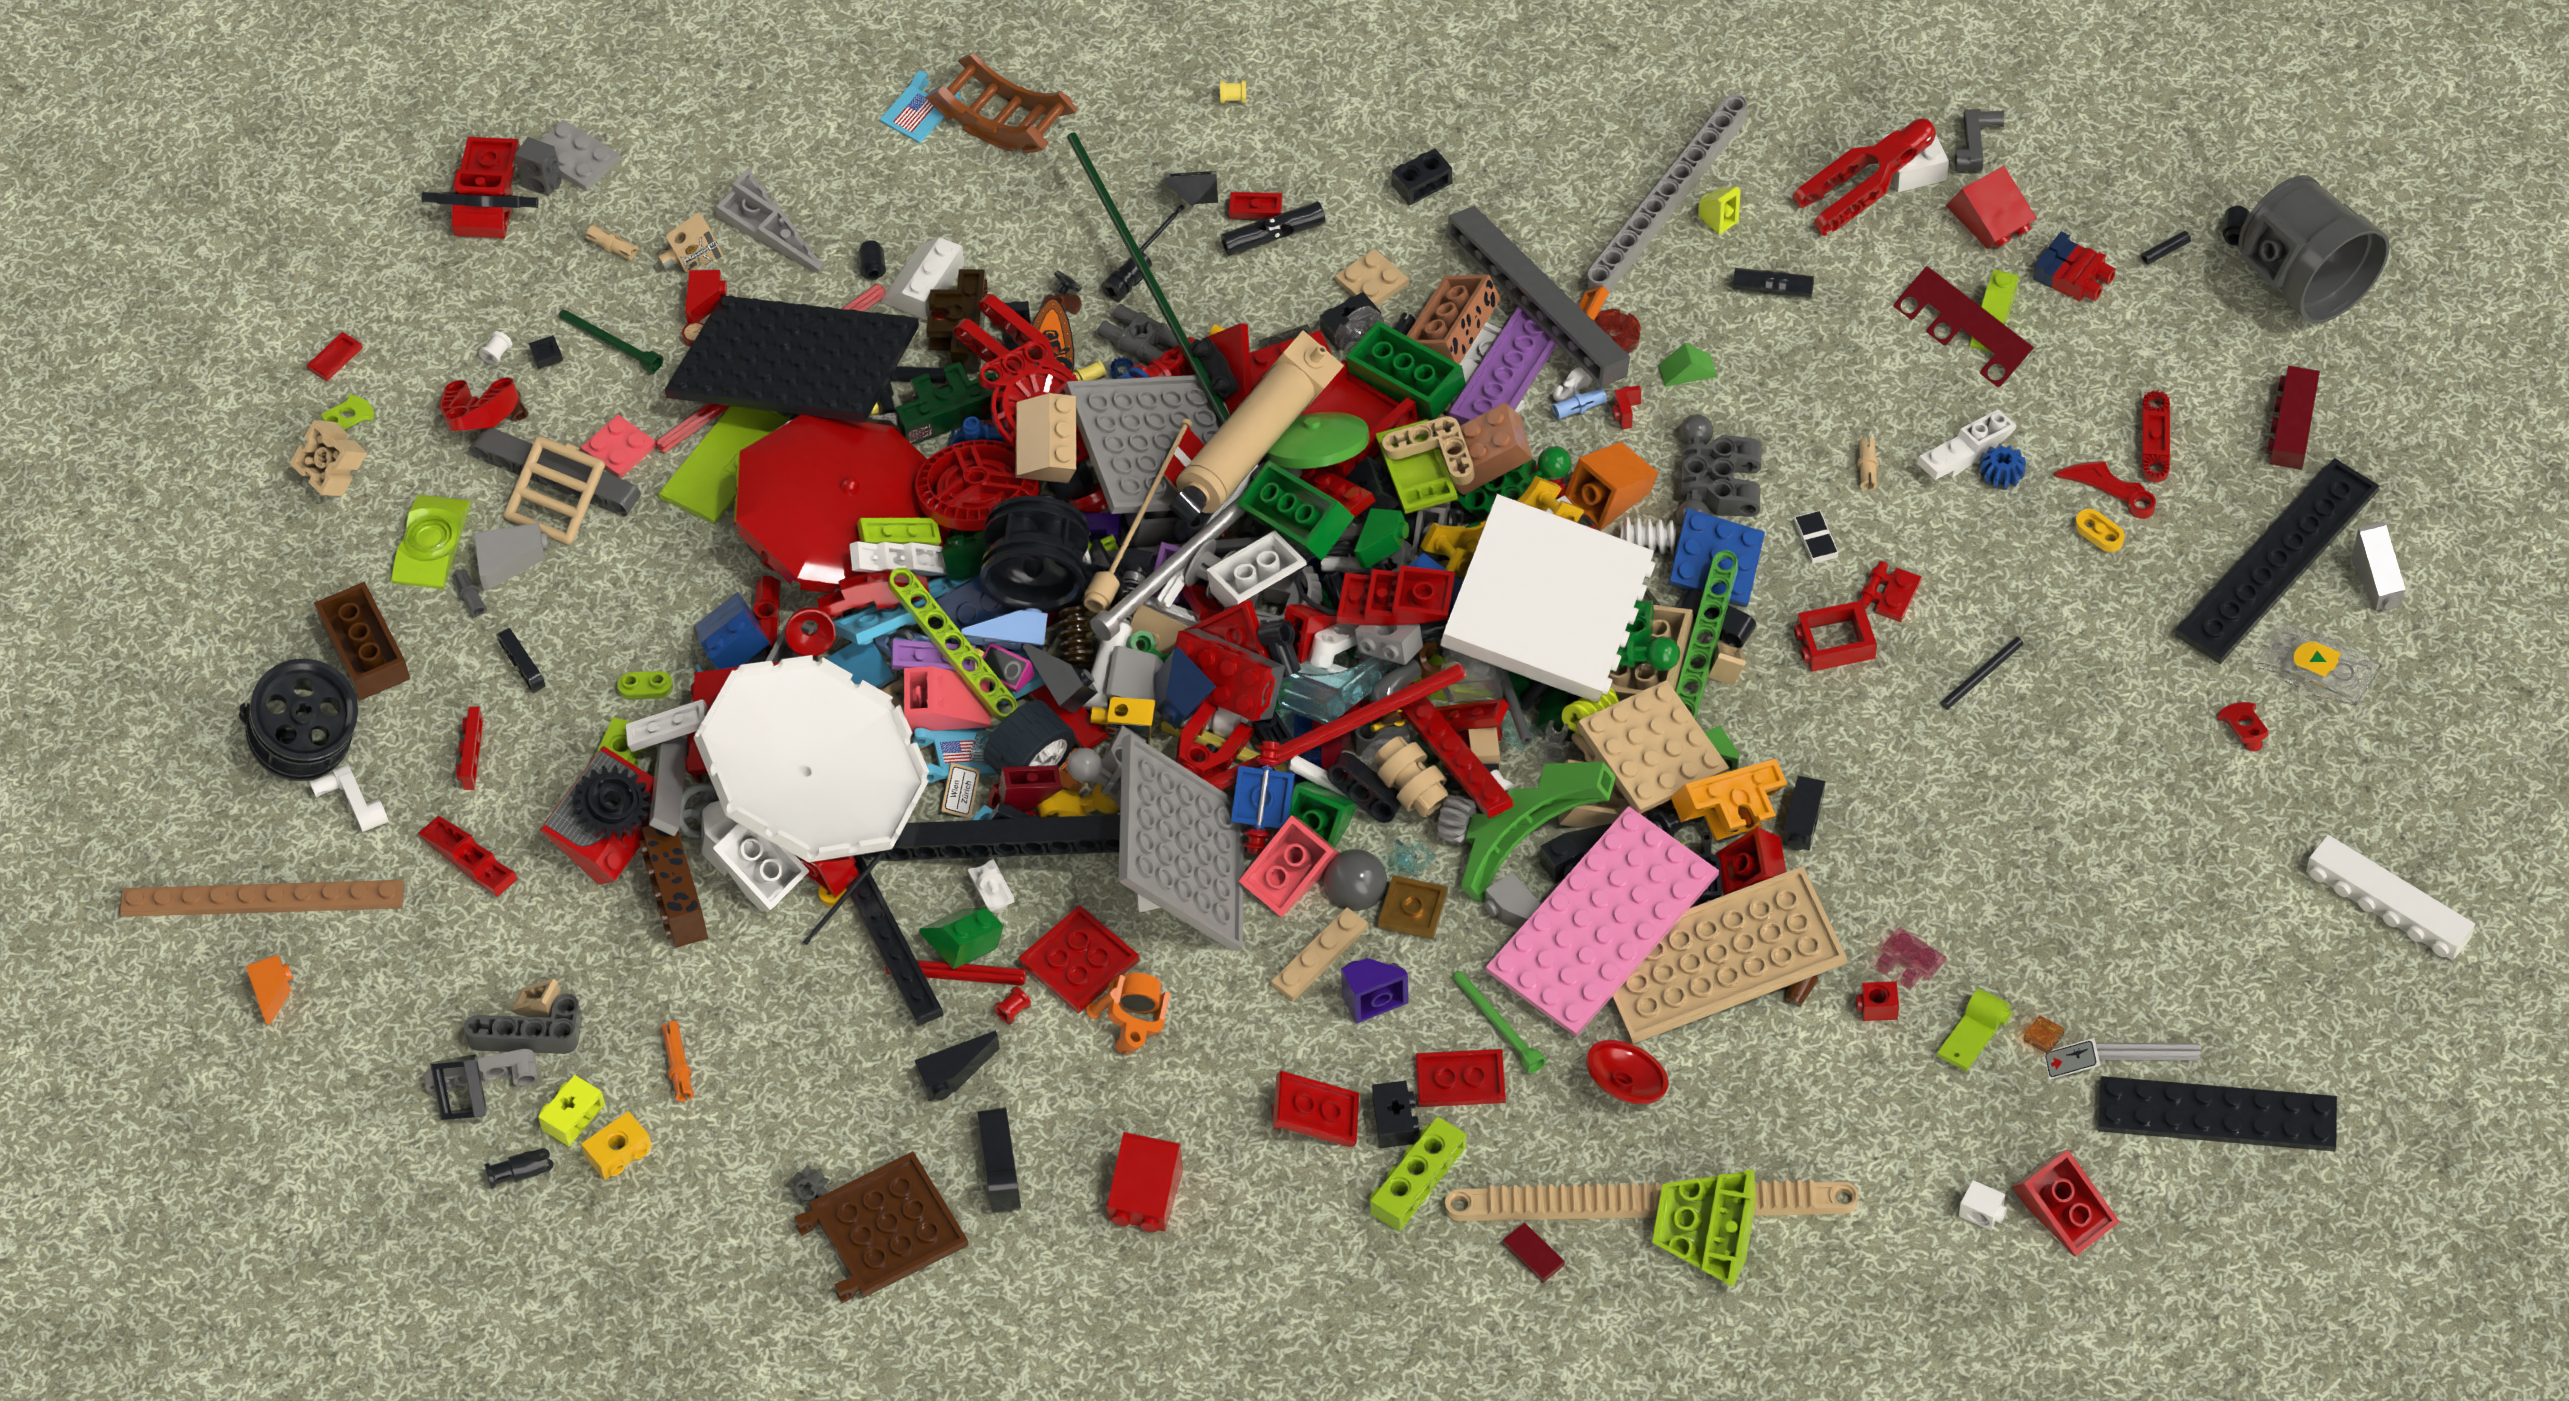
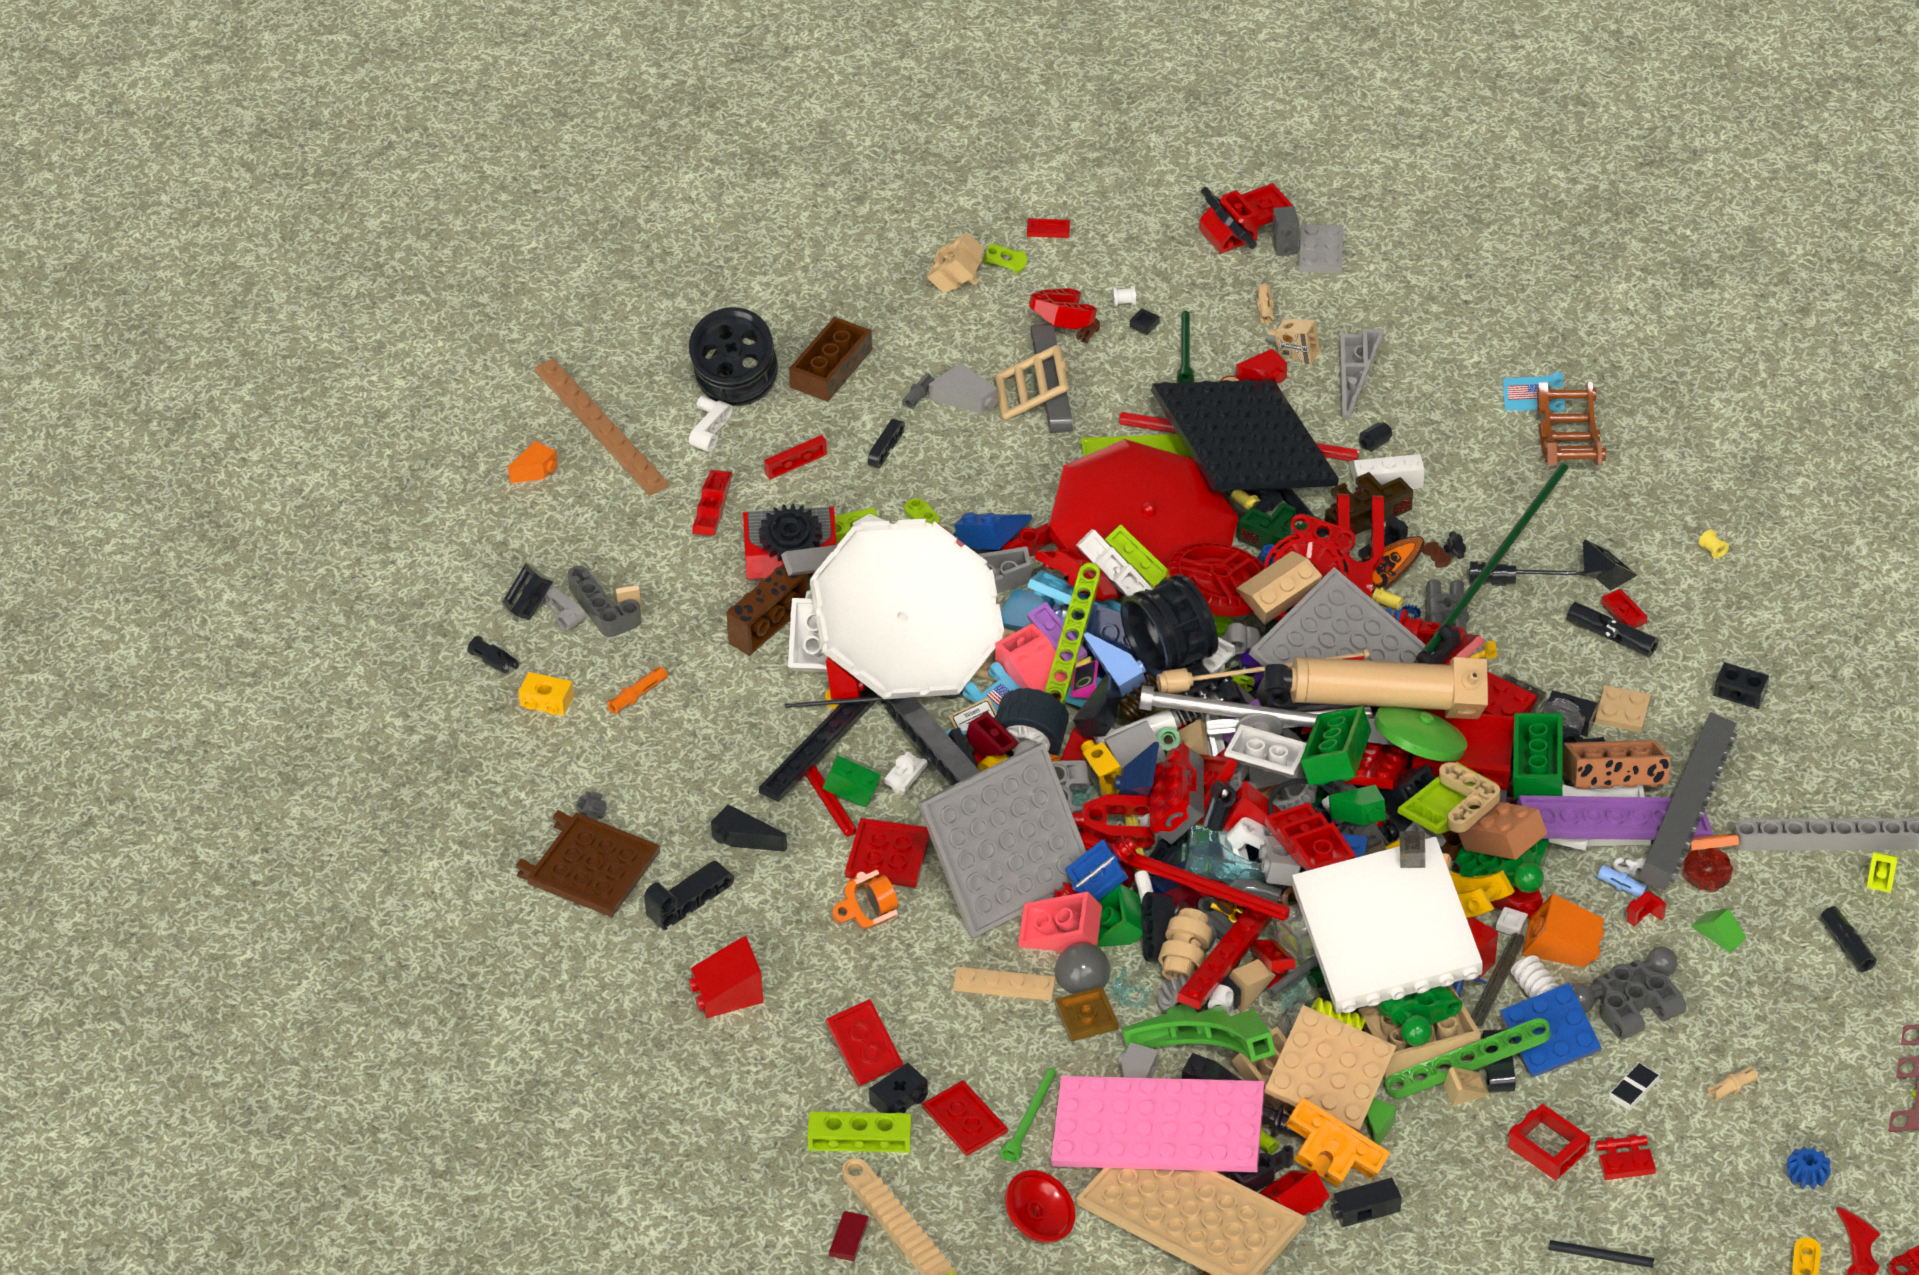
camera: 55 degrees right, 10 degrees down
(430, 541) = (944, 350): lime slope -> none
(571, 1110) = (555, 657): neon yellow brick -> none
(619, 446) = (1102, 398): coral plate -> none
(813, 643) = (1009, 558): red piece -> none
(1012, 1005) = (820, 836): red bush -> none
(1373, 988) = (988, 1022): dark purple slope -> none
(1505, 519) = (1412, 849): none -> clear smoke brick
(1968, 446) = (1794, 1133): white slope -> none

